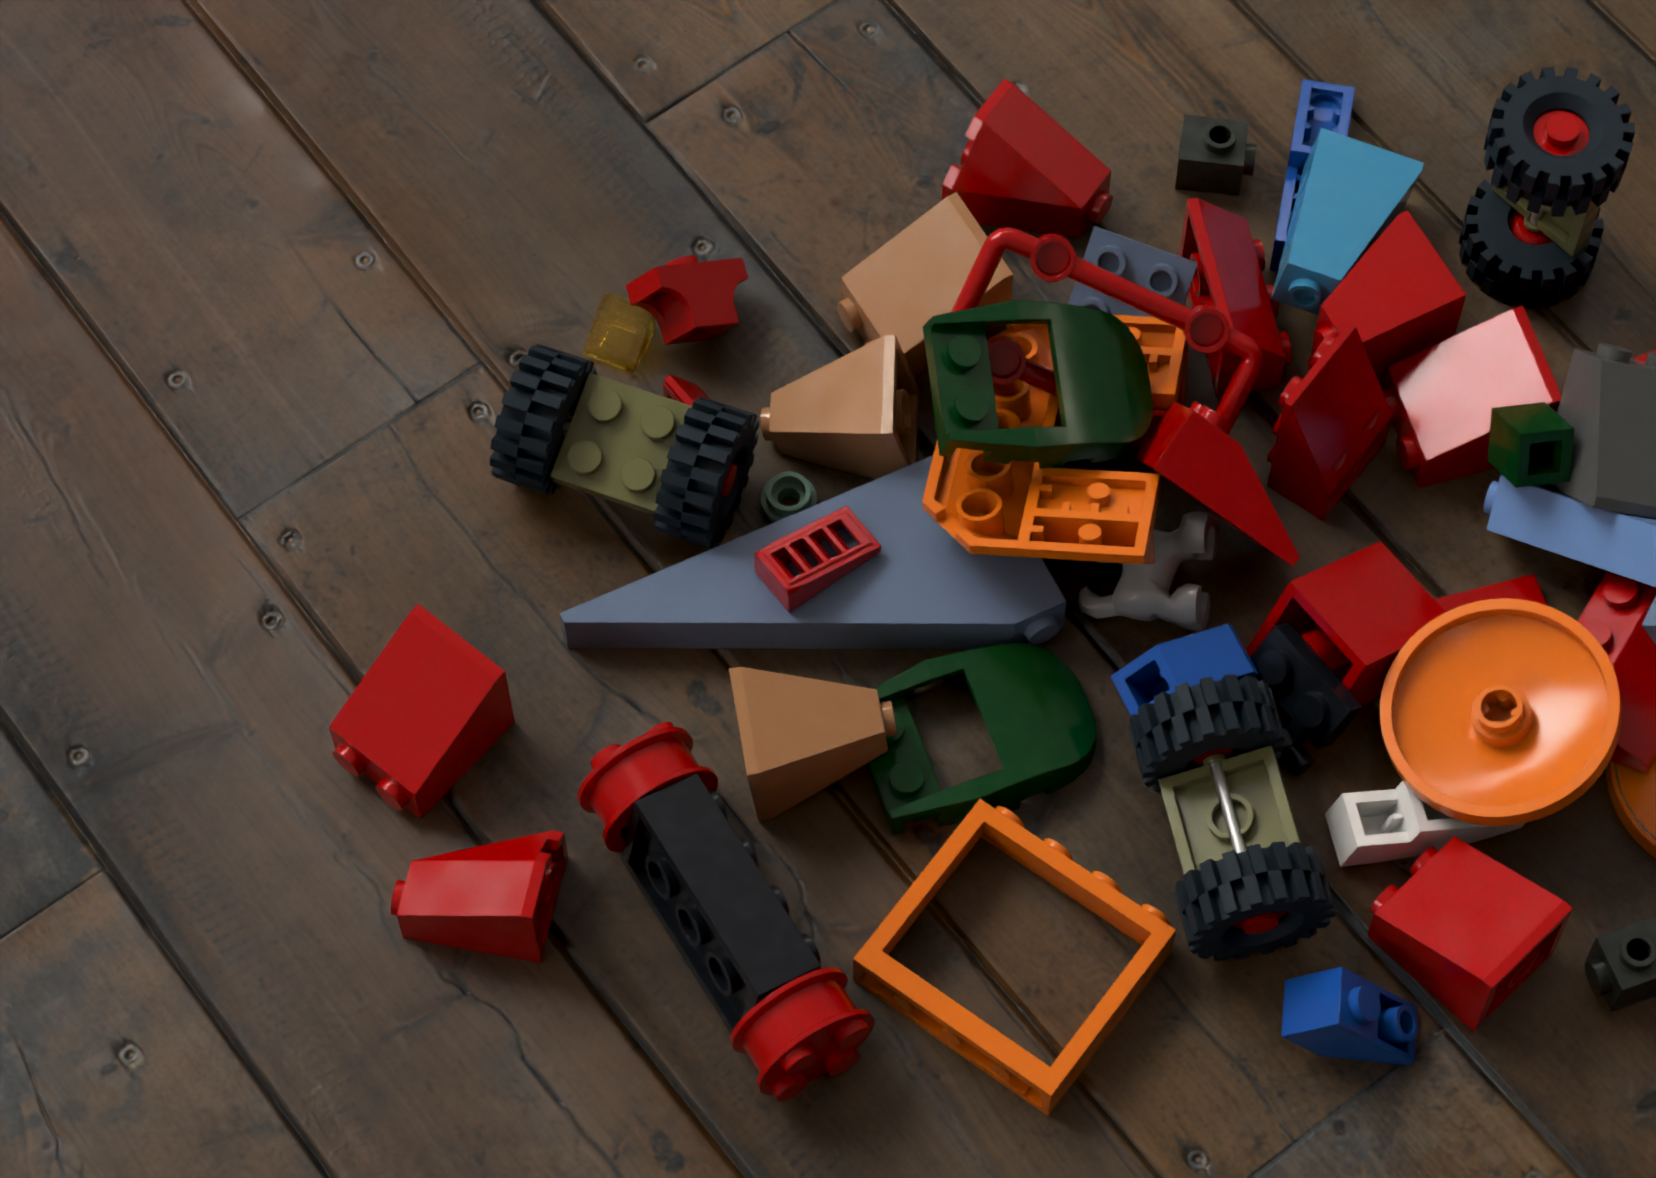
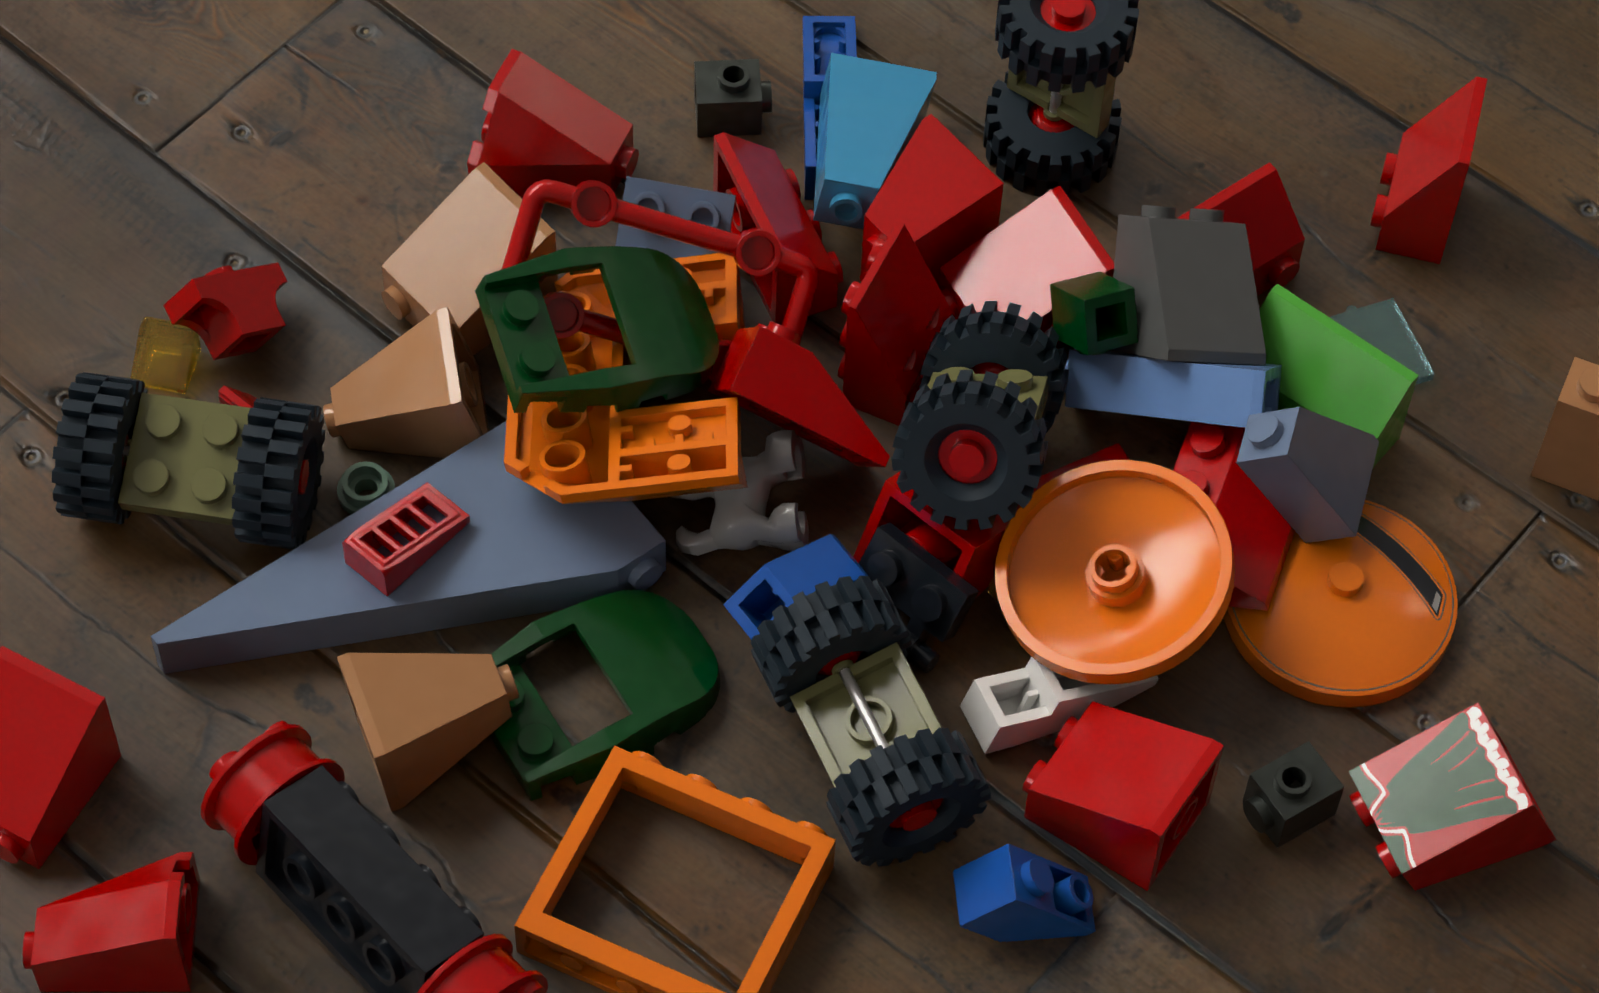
camera: 15 degrees left, 5 degrees down
(1391, 542) = (981, 416): none -> black plate

